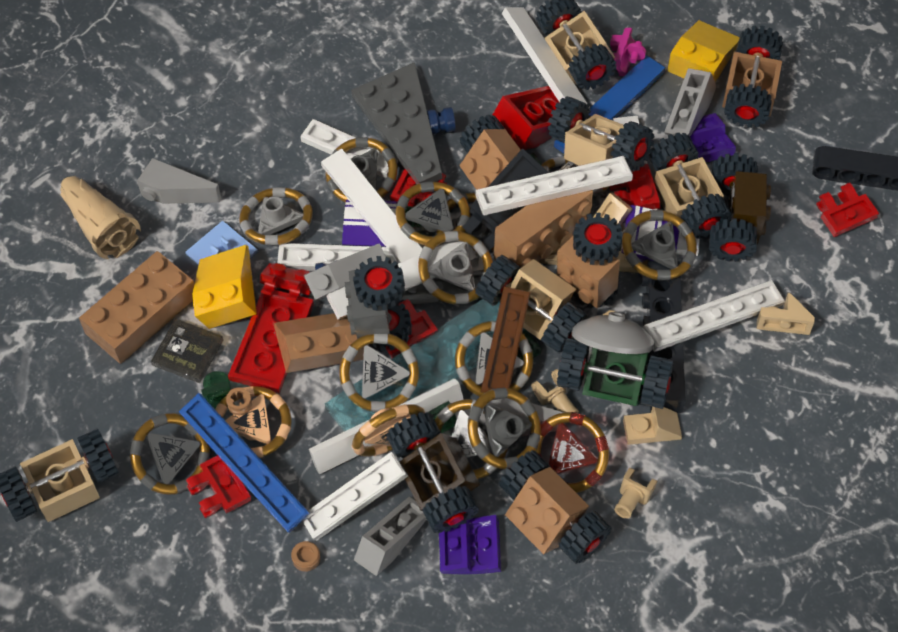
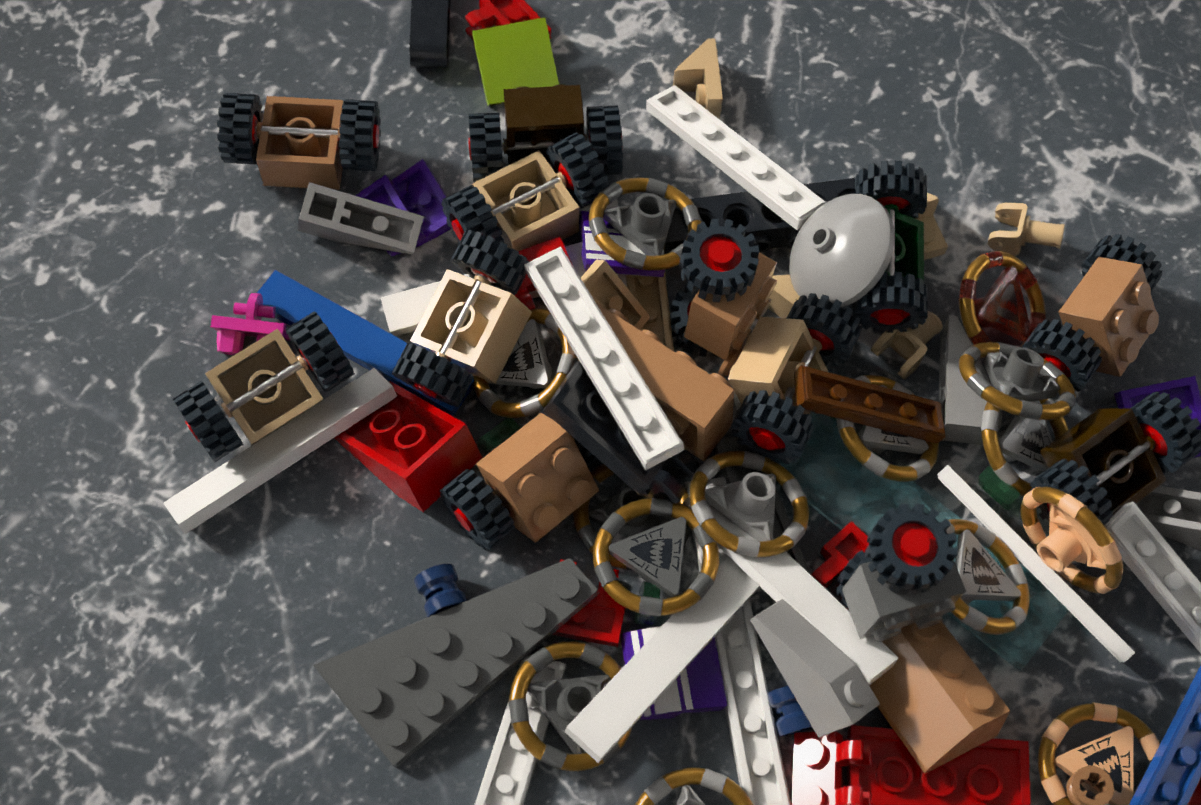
camera: 105 degrees left, 5 degrees up
(702, 49) = (237, 219): yellow slope -> none
(808, 206) = (514, 58): none -> lime tile

